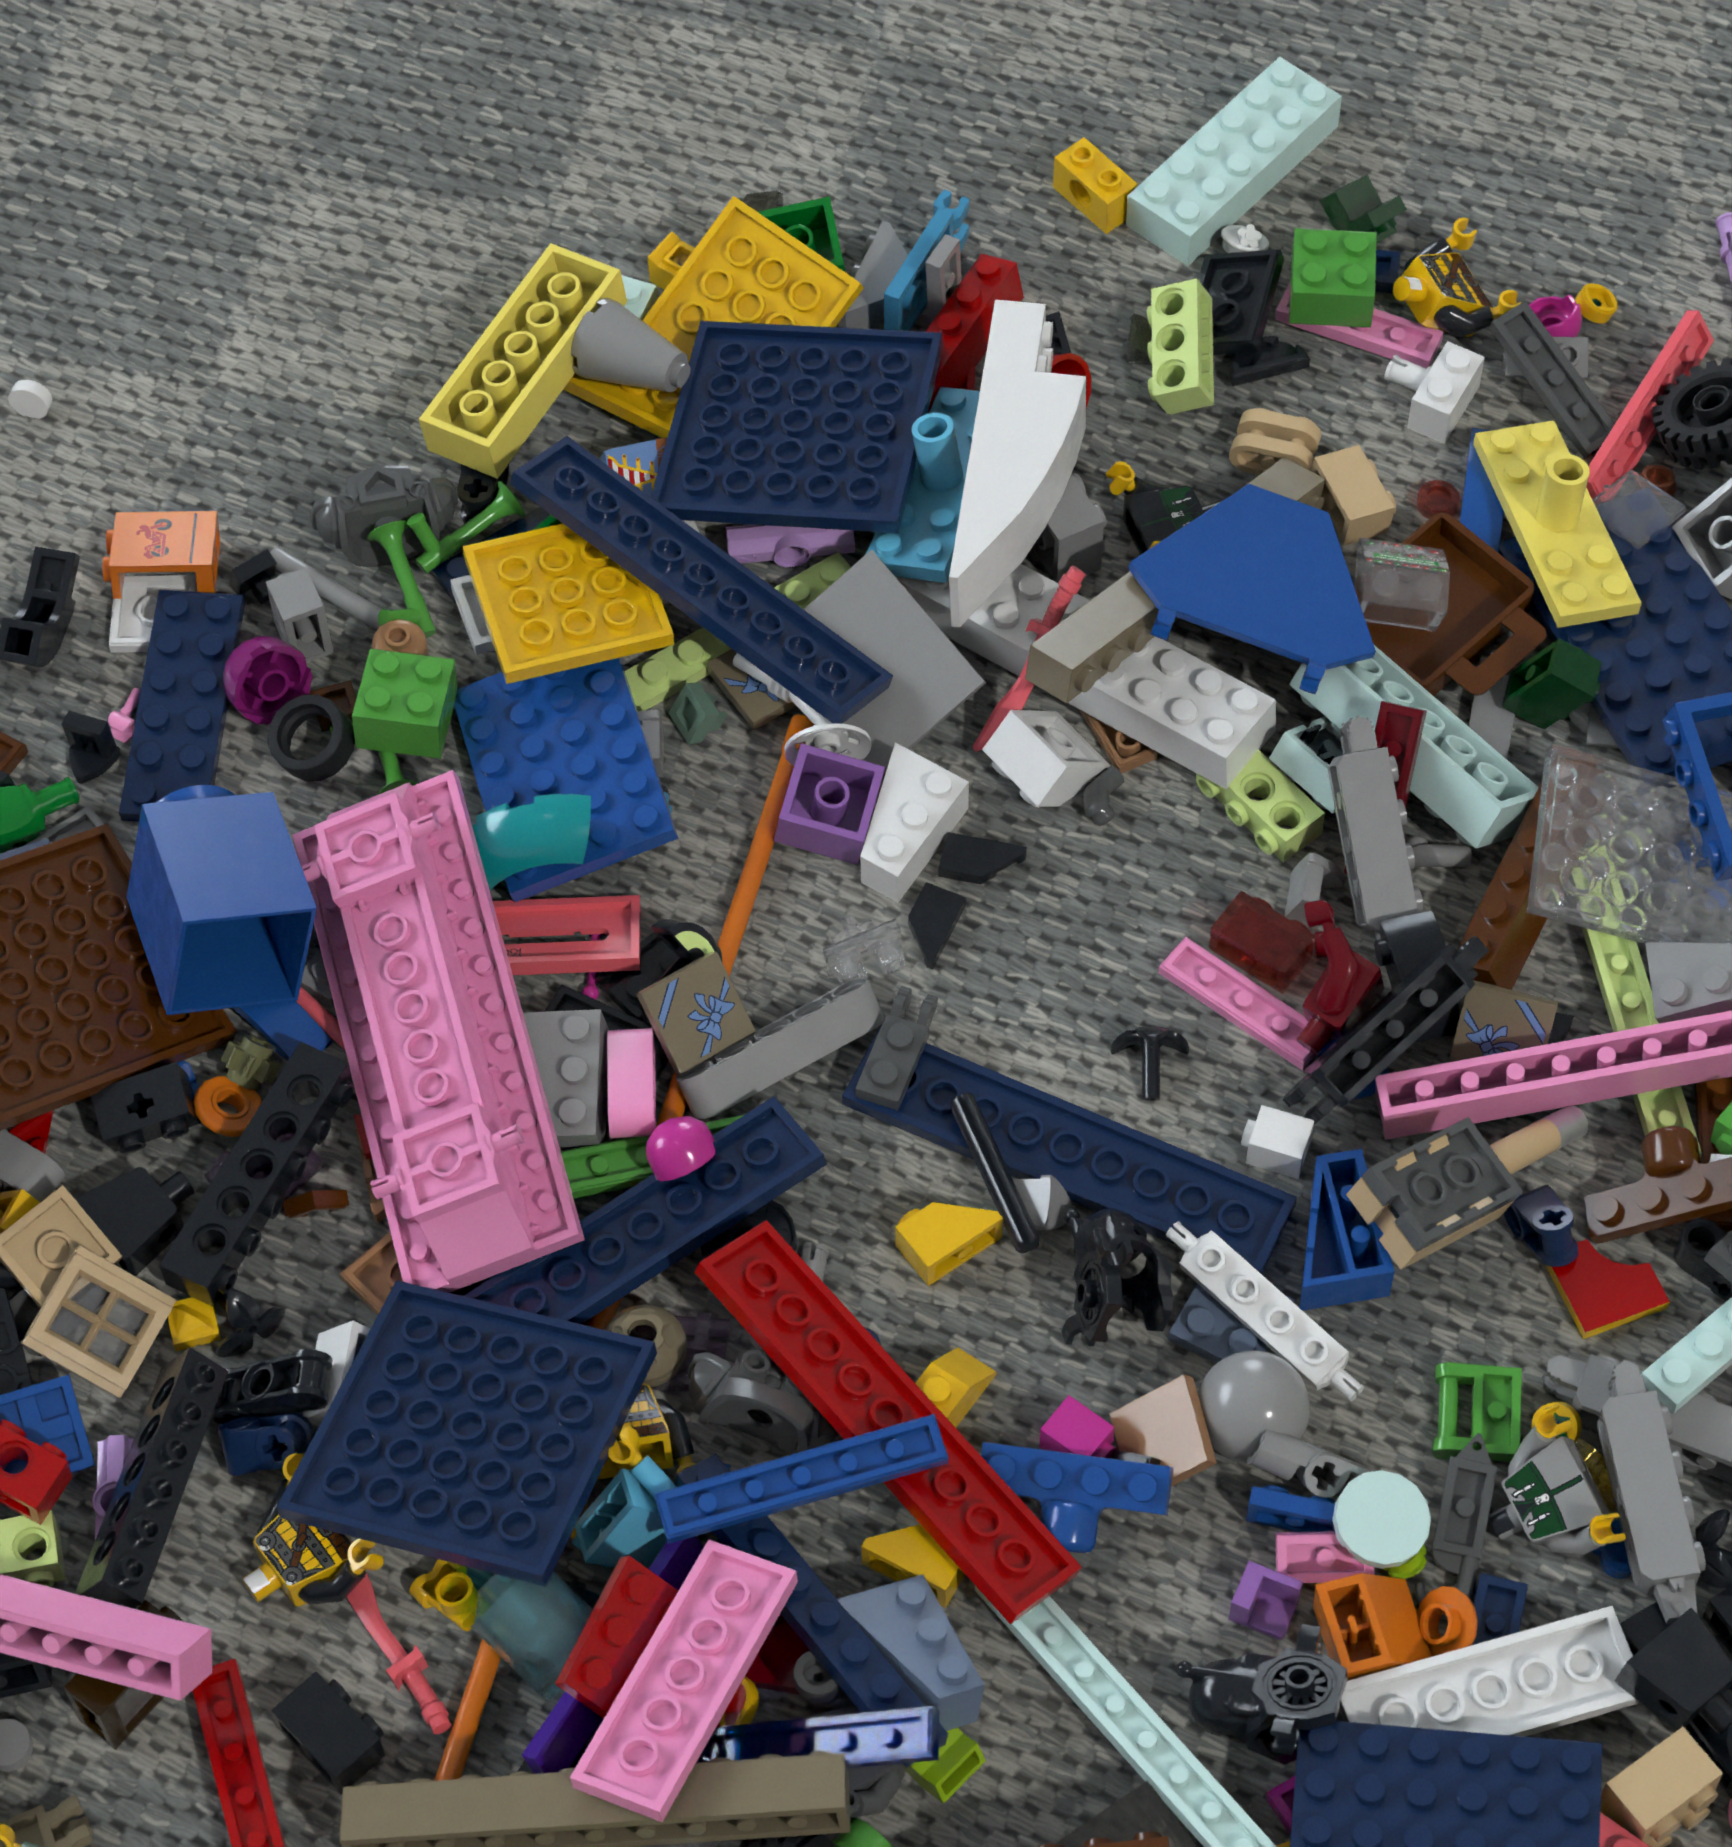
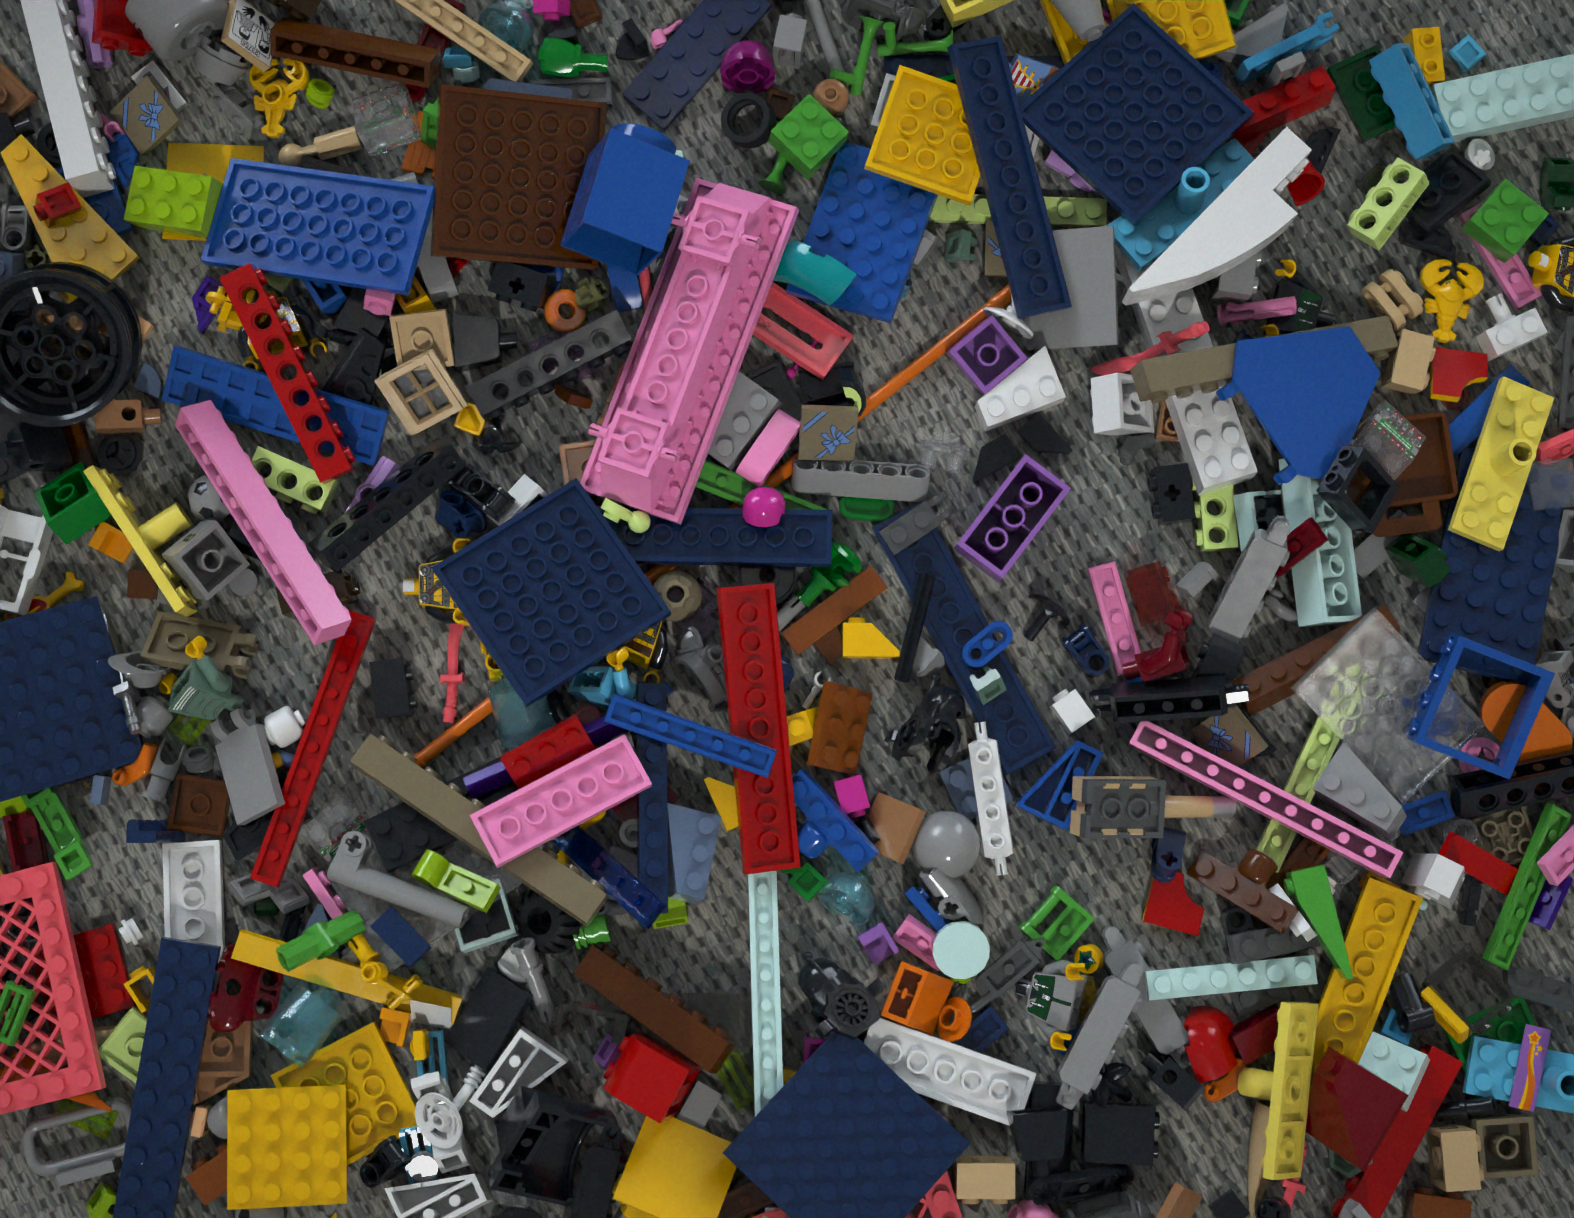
camera: 30 degrees right, 25 degrees up
(486, 1280) = (638, 520): none -> yellowish green plate
(815, 1083) = (866, 509): none -> green tile
(834, 1185) = (842, 561): none -> green piece
(873, 1229) = (834, 610): none -> dark orange tile
(900, 1279) = (830, 646): none -> reddish brown tile
(923, 1339) = (814, 691): none -> white hand
(994, 1360) = (839, 728): none -> dark orange plate
(1016, 952) = (1012, 518): none -> medium lavender brick
(1065, 257) = (1362, 94): none -> dark green plate
(1101, 1591) = (805, 881): none -> green plate
(1105, 1131) = (986, 644): none -> blue plate
(1117, 225) = (1411, 101): none -> dark azure brick
(1124, 546) = (1255, 310): none -> bright pink piece
(1139, 156) = (1466, 54): none -> medium azure tile
(1147, 1174) = (988, 686): none -> sand green tile
(1178, 1566) = (850, 896): none -> clear light blue cylinder
(1193, 814) = (1181, 507): none -> black brick
(1236, 1060) = (1085, 649): none -> dark blue piece
(1337, 398) = (1450, 295): none -> yellow animal
(1416, 472) = (1455, 370): none -> red tile
(1437, 668) = (1375, 499): none -> black window

